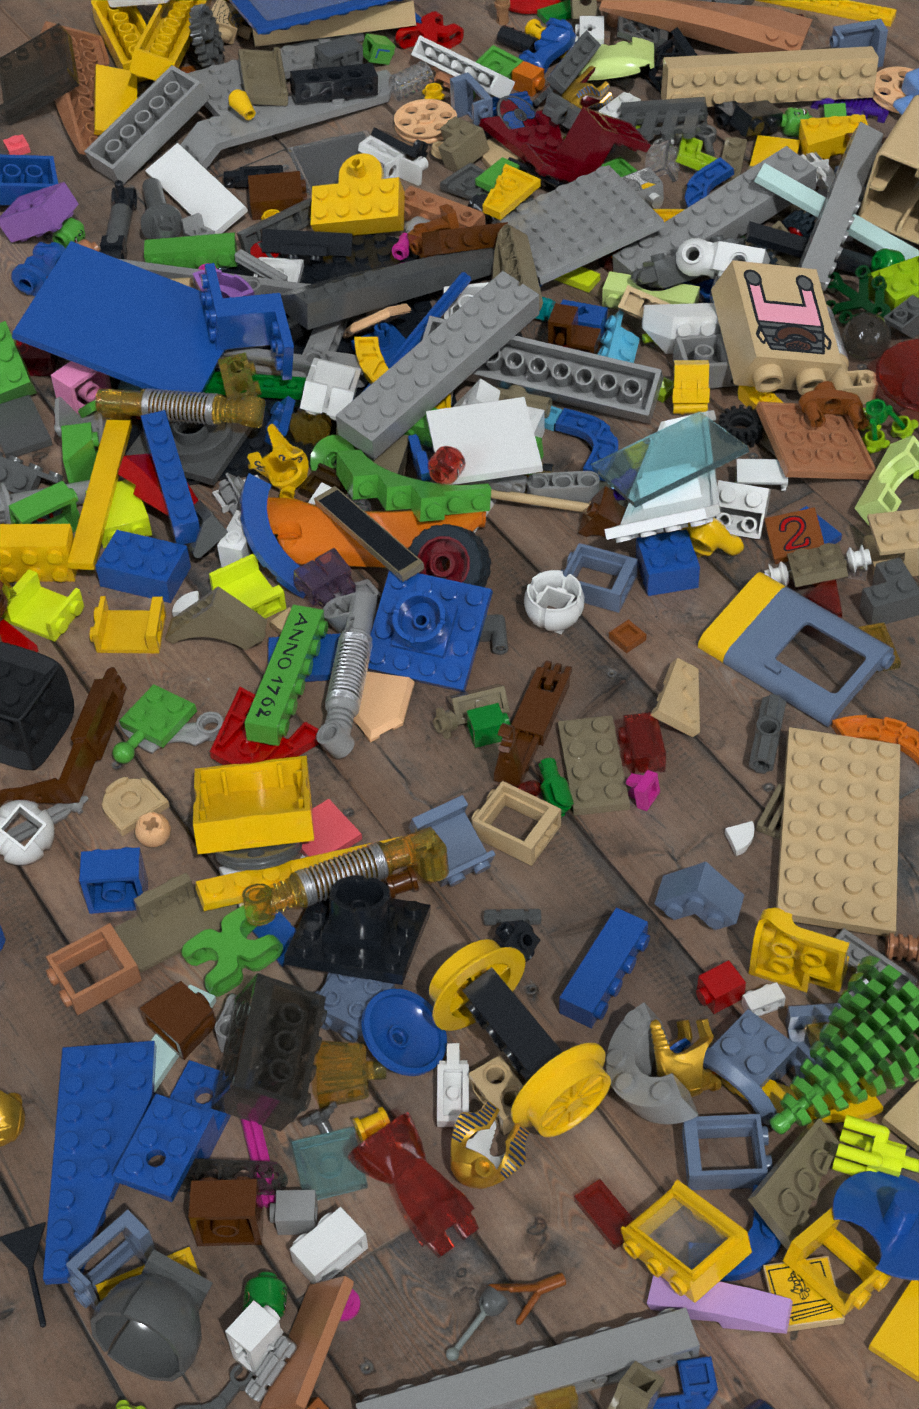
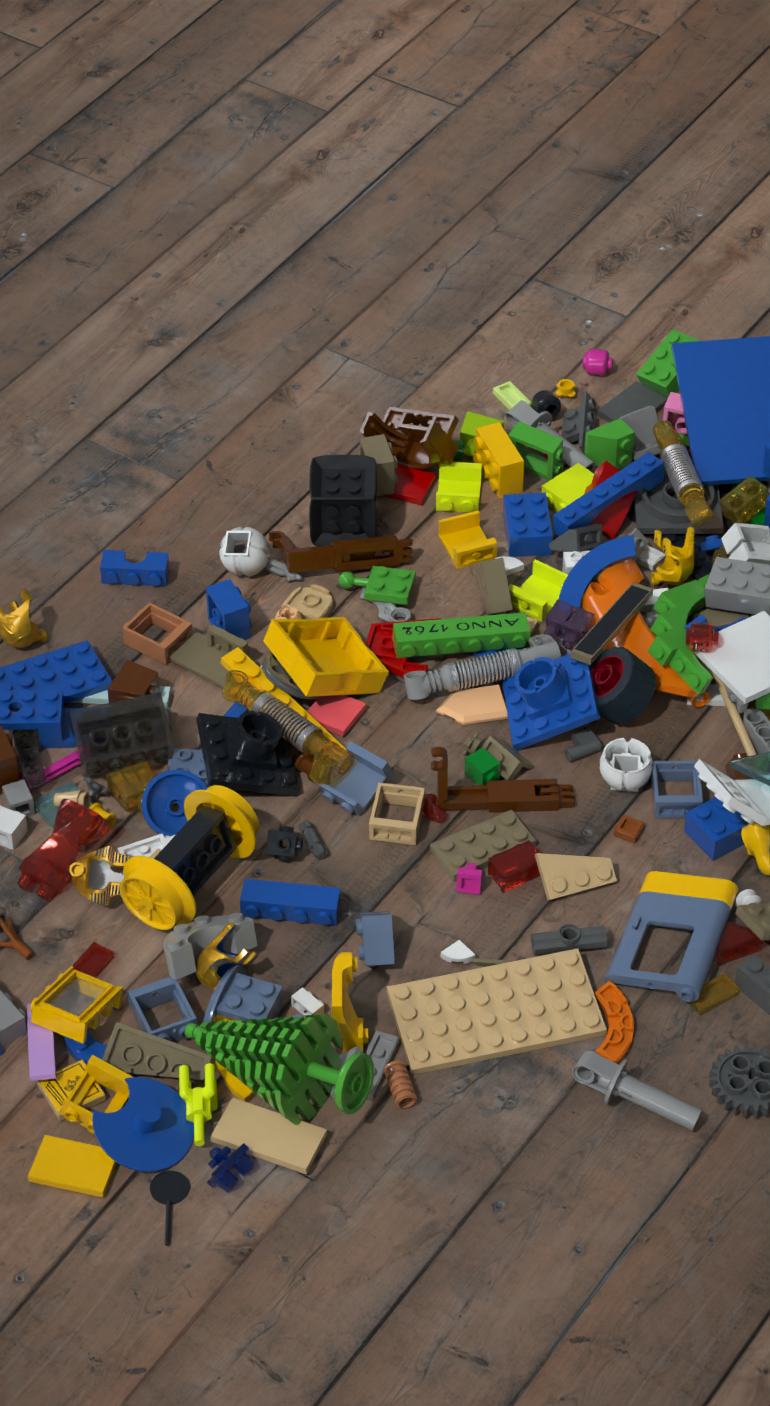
camera: 65 degrees right, 5 degrees down
(99, 495) = (568, 471): yellow tile -> none
(231, 951) = (202, 697): bright green piece -> none
(338, 1145) = (78, 796): none -> tan cone
(554, 787) = (441, 826): green arm -> none
(720, 987) = (305, 973): red brick -> none

